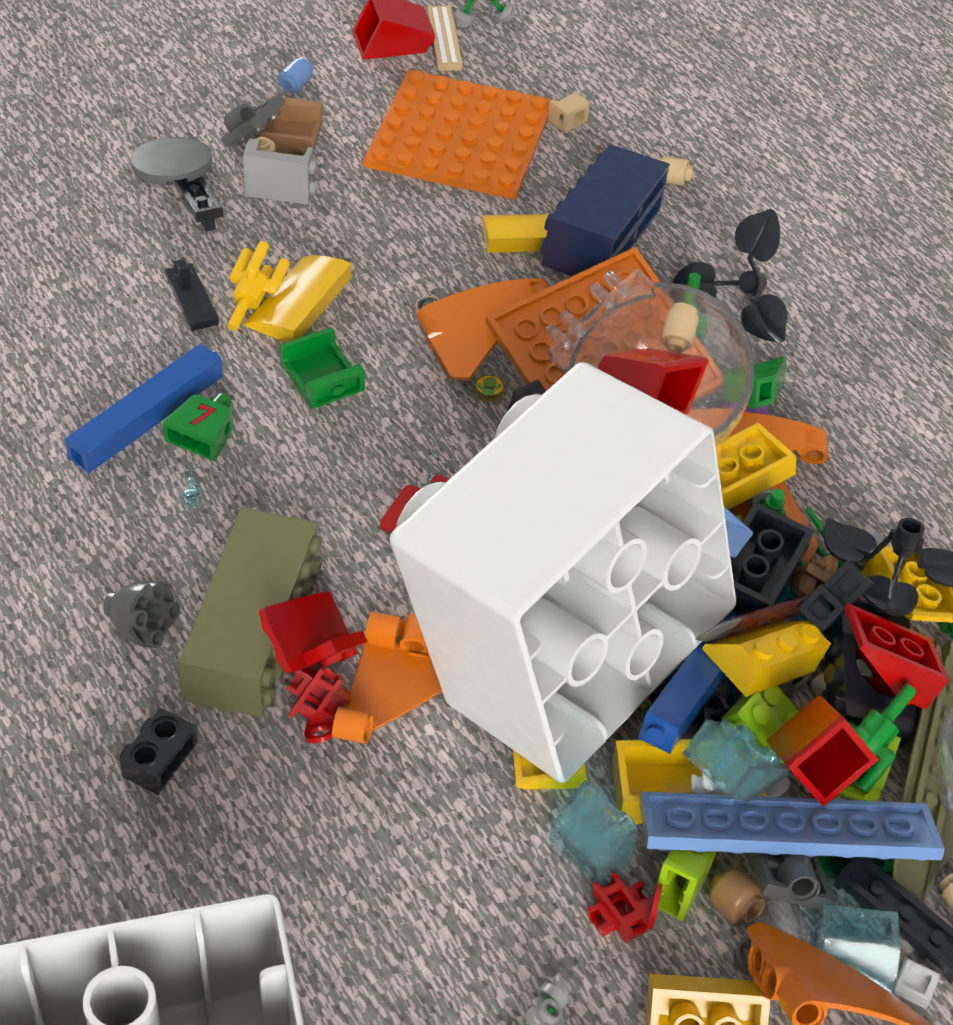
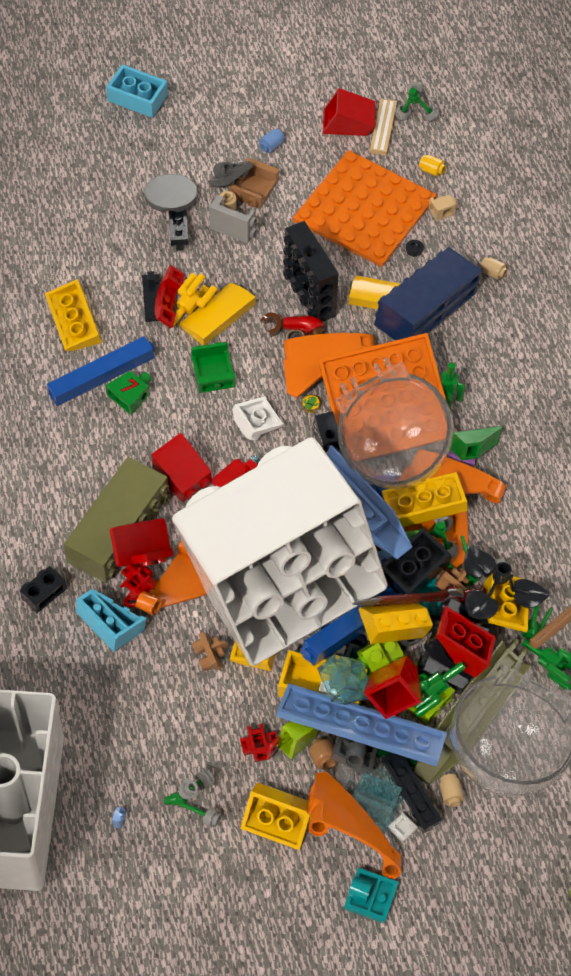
camera: 20 degrees right, 10 degrees up
(75, 343) = (73, 316): none -> yellow slope
(77, 45) = (137, 91): none -> medium azure brick
(141, 610) = (57, 504): dark grey piece -> none
(191, 495) = (110, 435): clear light blue hand -> none
(213, 286) = (167, 295): none -> red slope
(290, 771) = (108, 620): none -> medium azure wedge
(341, 511) = (182, 466): none -> red slope
(415, 172) = (310, 272): none -> black brick
(415, 422) = (256, 418): none -> white slope
(435, 284) = (307, 324): none -> piece
(487, 793) = (206, 644): none -> medium nougat hips
(532, 68) = (432, 165): none -> yellow brick
(551, 168) = (414, 248): none -> black tile
(594, 834) = (257, 700): clear light blue slope -> none
(658, 373) = (383, 438): red slope -> none
(680, 327) = (411, 409): tan brick -> none
(760, 238) = (508, 343): black plant -> none
(829, 599) = (447, 596): black slope -> none

